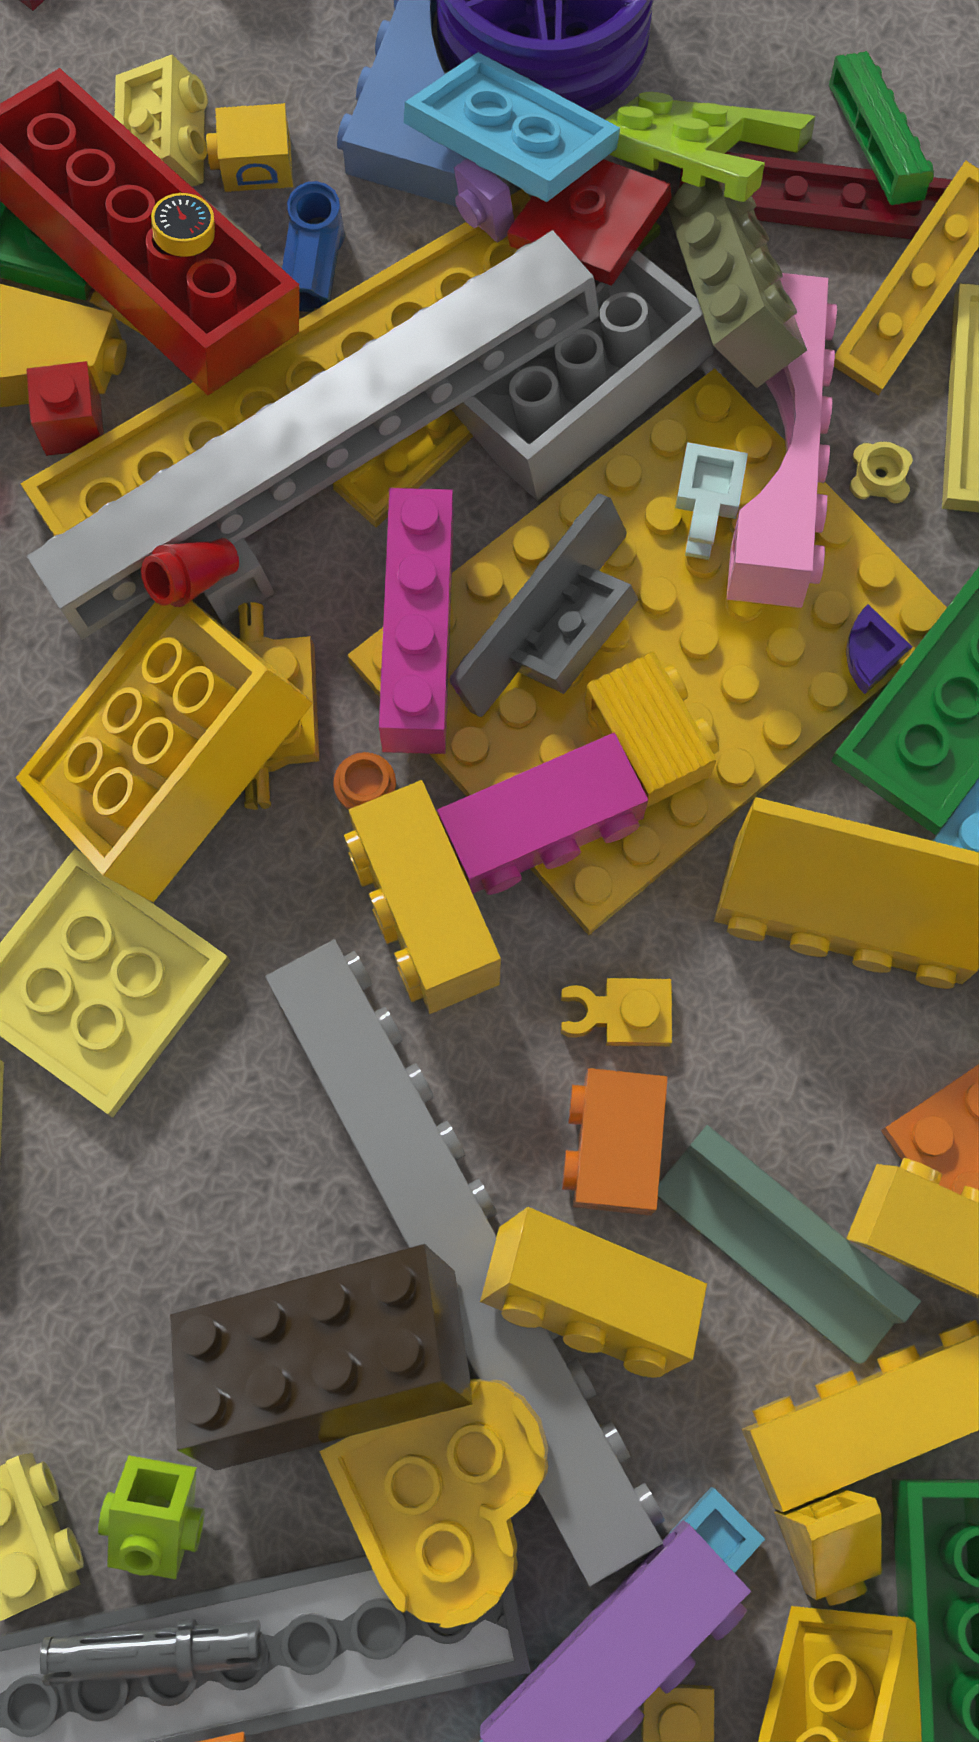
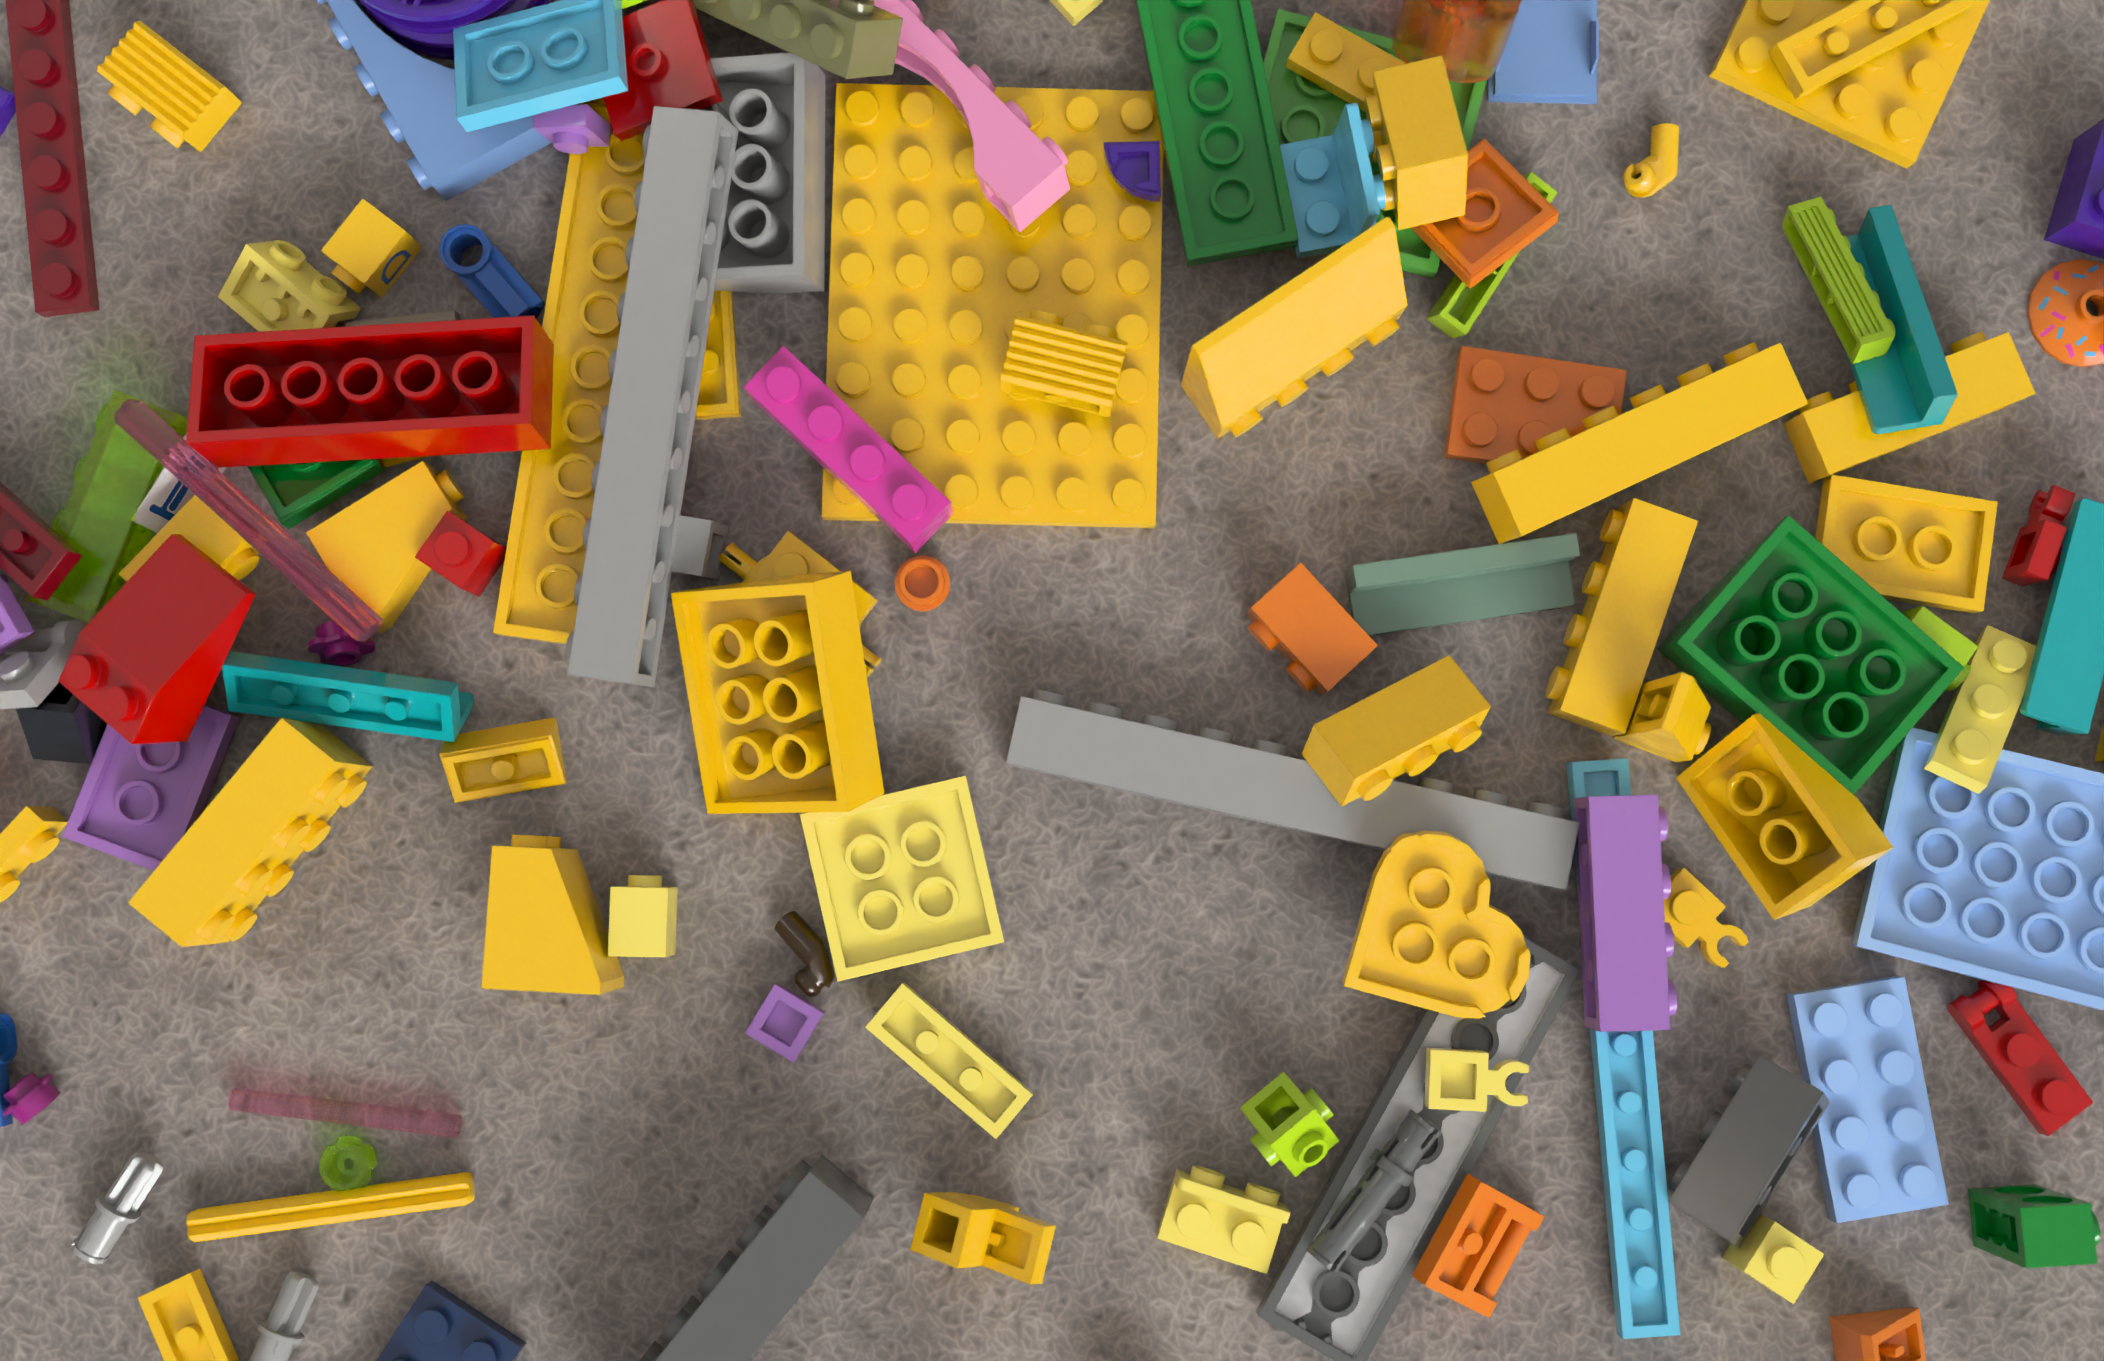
camera: 50 degrees left, 10 degrees up
(183, 224) = (415, 356): tile -> none
(185, 570) = (679, 575): red cone -> none
(319, 1359) = (1289, 937): dark brown brick -> none
(326, 1647) = (1462, 1080): none -> light yellow plate
(422, 898) = (1044, 615): yellow brick -> none
(544, 815) = (1060, 487): dark pink brick -> none
(555, 617) = (931, 355): dark grey bracket -> none
(632, 1011) = (1230, 547): yellow plate -> none
(710, 488) = (928, 170): light aqua plate -> none
(884, 456) = (1012, 26): light yellow plate -> none

